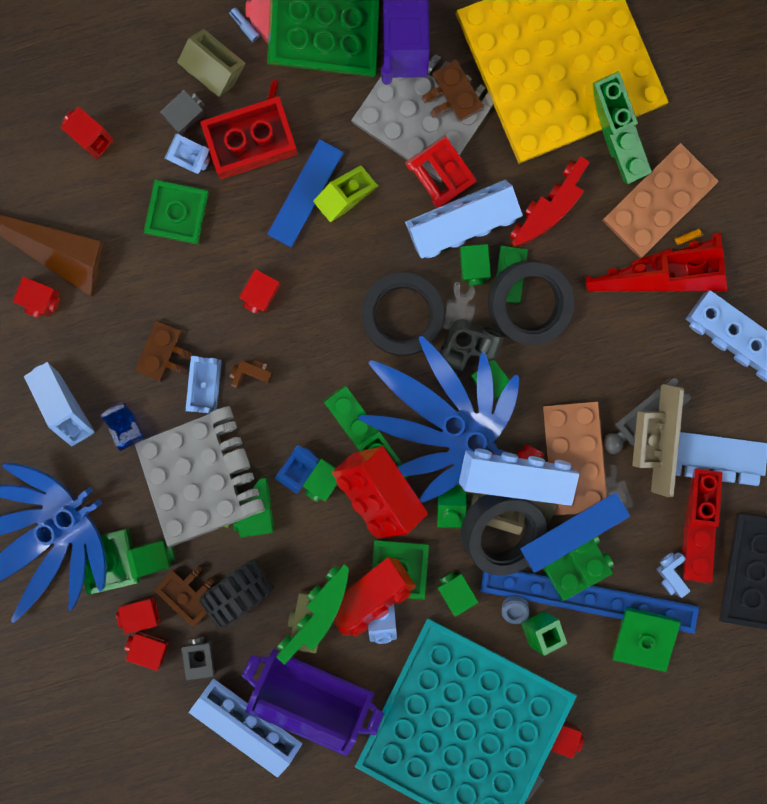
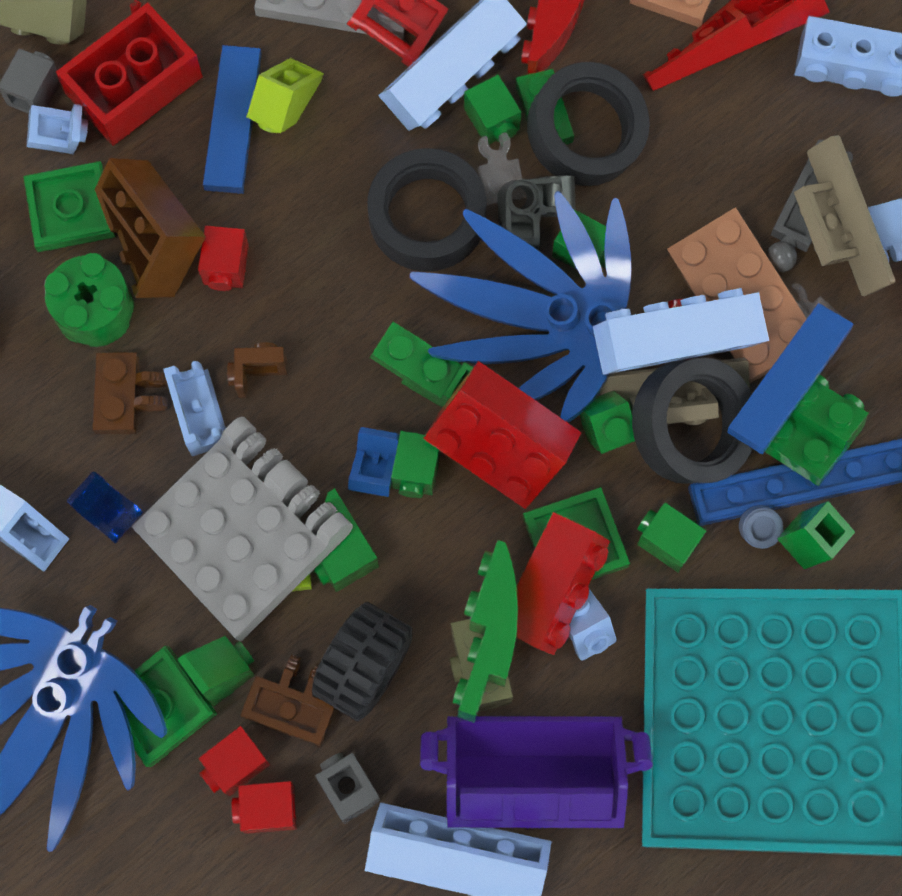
camera: 20 degrees left, 15 degrees down
(152, 274) = (79, 282): none -> green brick
(222, 251) = (151, 225): none -> reddish brown wedge

